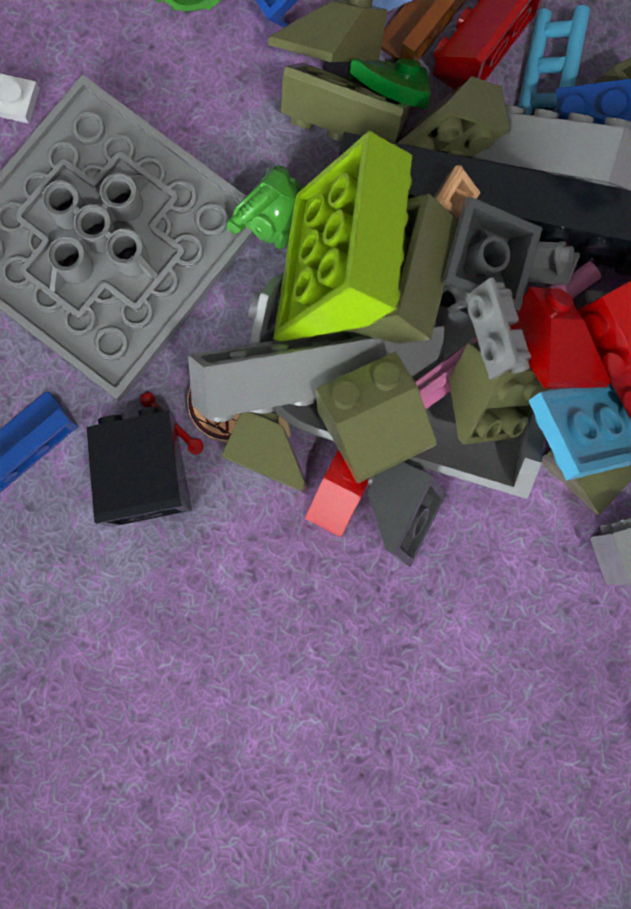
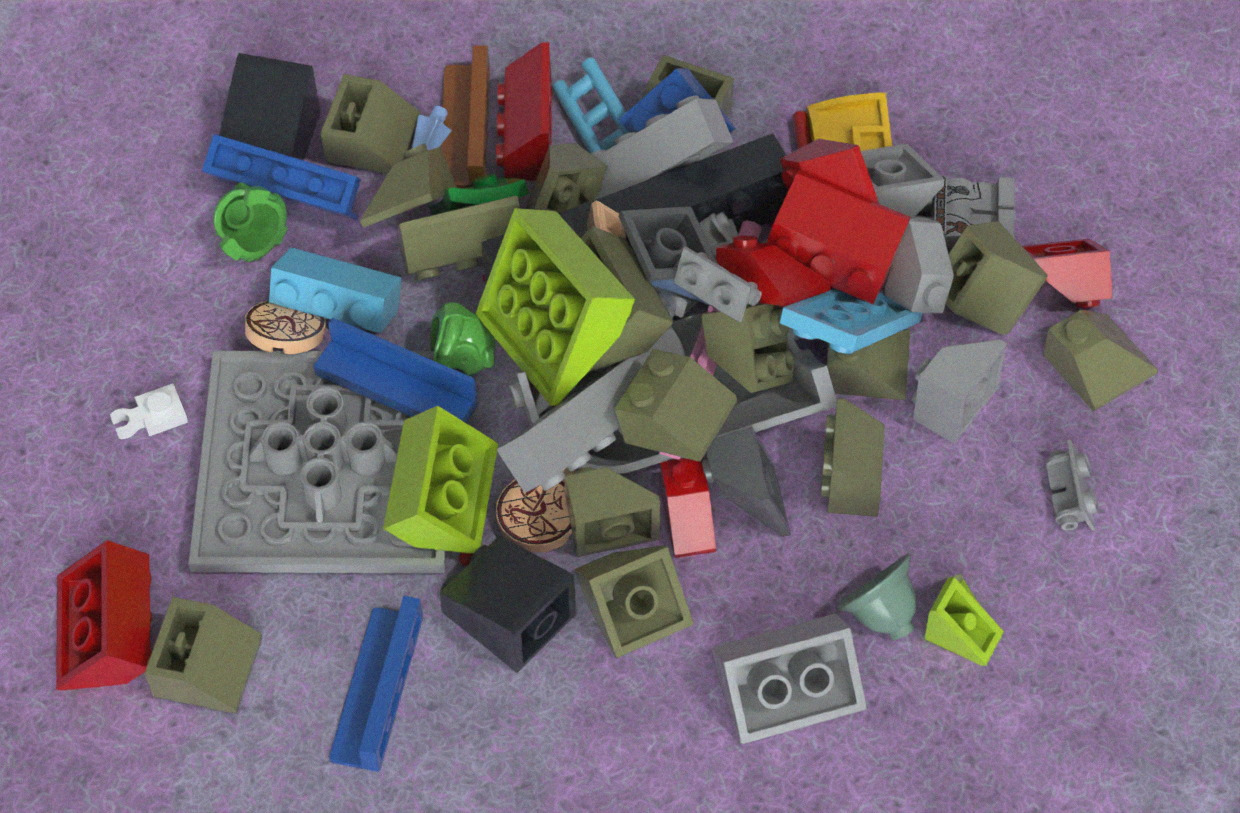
camera: 40 degrees left, 25 degrees down
(152, 91) = (284, 328): none -> light nougat tile
(156, 328) = (441, 483): none -> lime slope
(194, 209) = (393, 374): none -> blue panel
(213, 85) = (335, 289): none -> medium azure brick
(237, 536) = (634, 597): none -> olive slope
(306, 696) = (790, 678): none -> light grey slope
(430, 687) = (885, 601): none -> sand green hat
(483, 750) = (961, 623): none -> lime slope
(505, 552) = (852, 461): none -> olive slope

